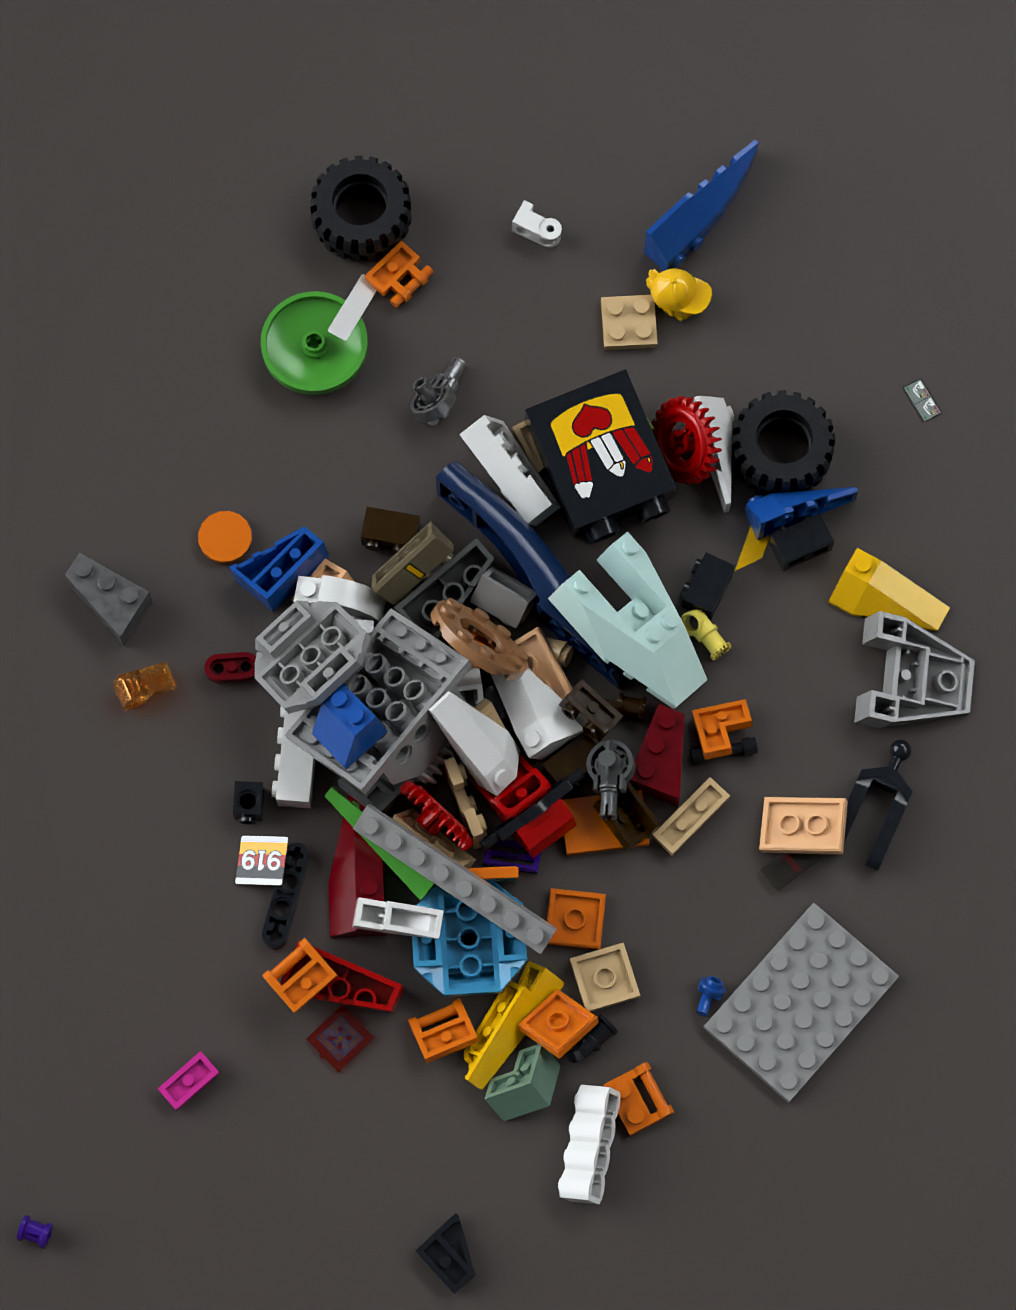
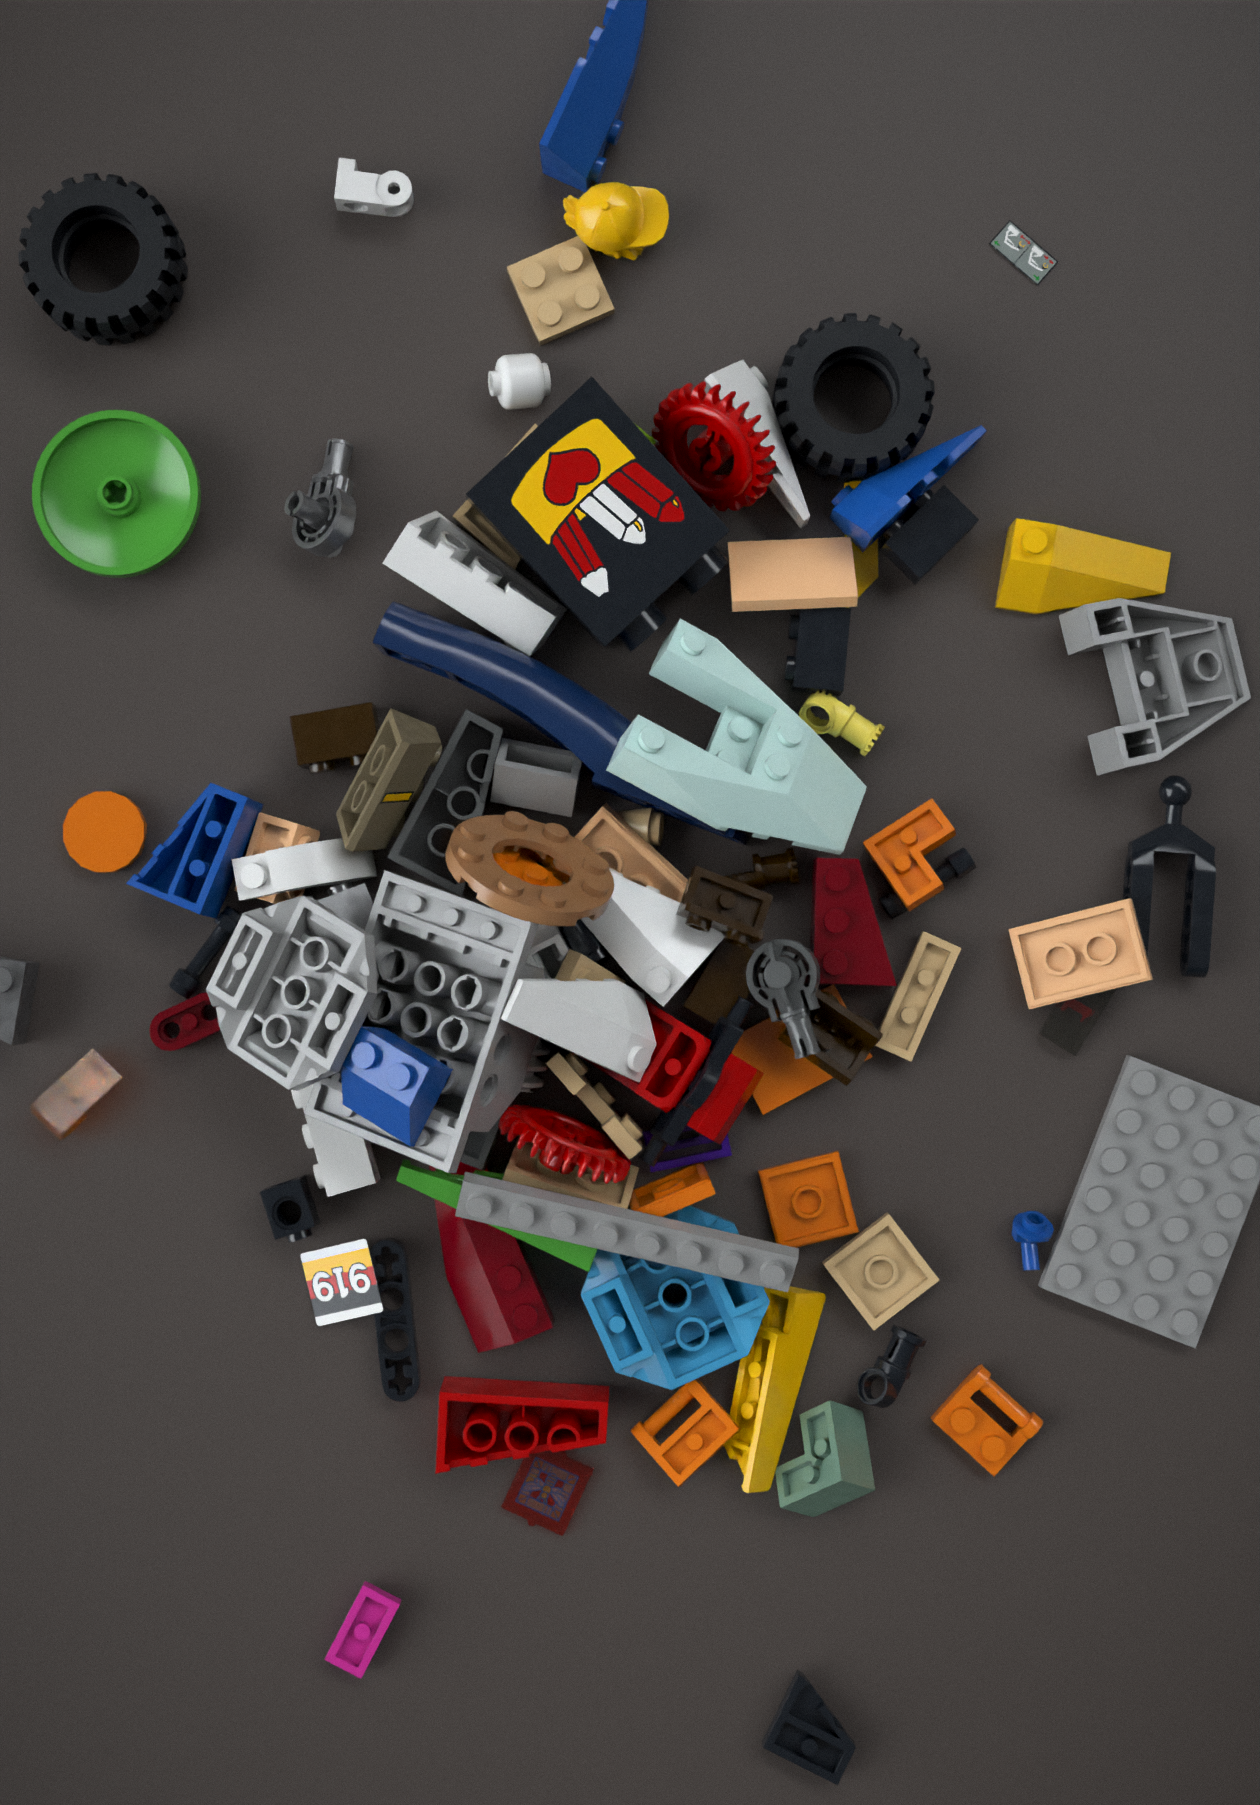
camera: 20 degrees left, 15 degrees up
(239, 643) = (187, 980): none -> black bar
(306, 982) = (474, 1451): orange plate -> none
(352, 309) = (153, 419): white sticker -> none
(393, 268) = (188, 334): orange plate -> none
(397, 918) = (567, 1317): white slope -> none
(558, 1023) = (842, 1364): orange tile -> none
(583, 364) = (520, 381): none -> white head
(589, 1144) = (947, 1515): white brick -> none
(707, 534) = (792, 574): none -> light nougat tile

